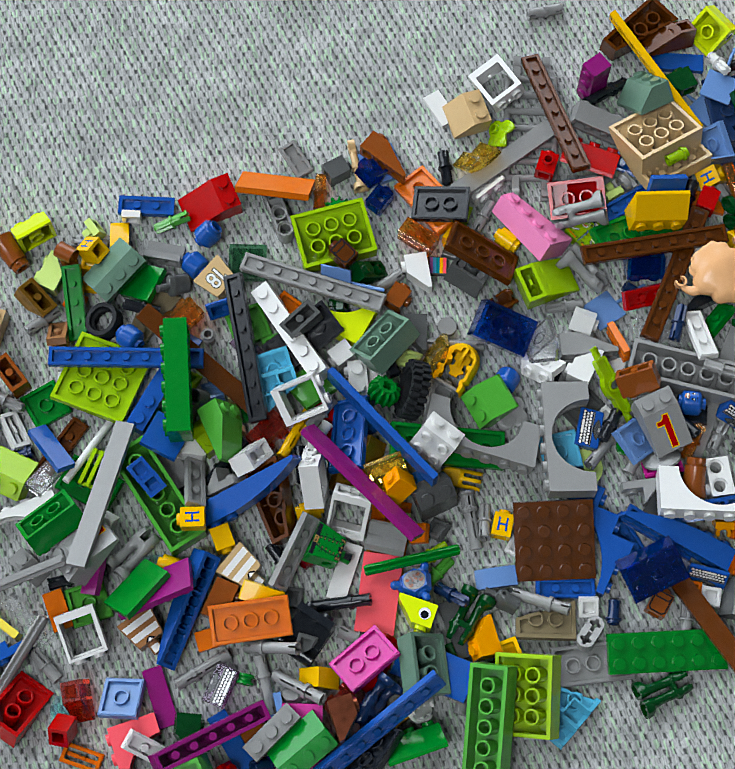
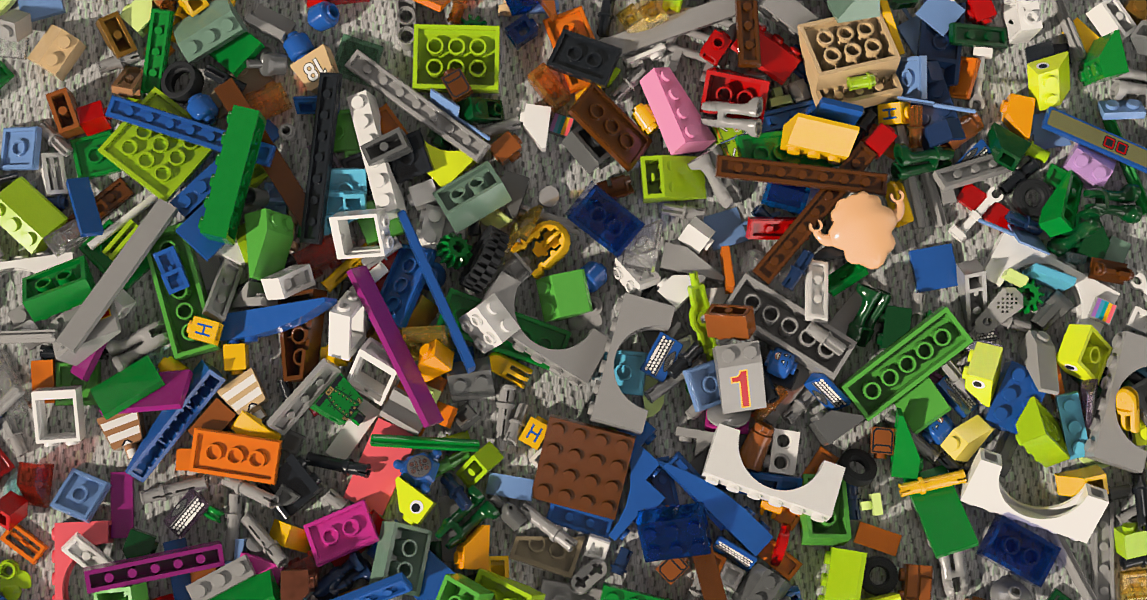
camera: 15 degrees right, 10 degrees up
(37, 372) = (93, 118): none -> red brick
(464, 566) = (479, 464): none -> lime slope

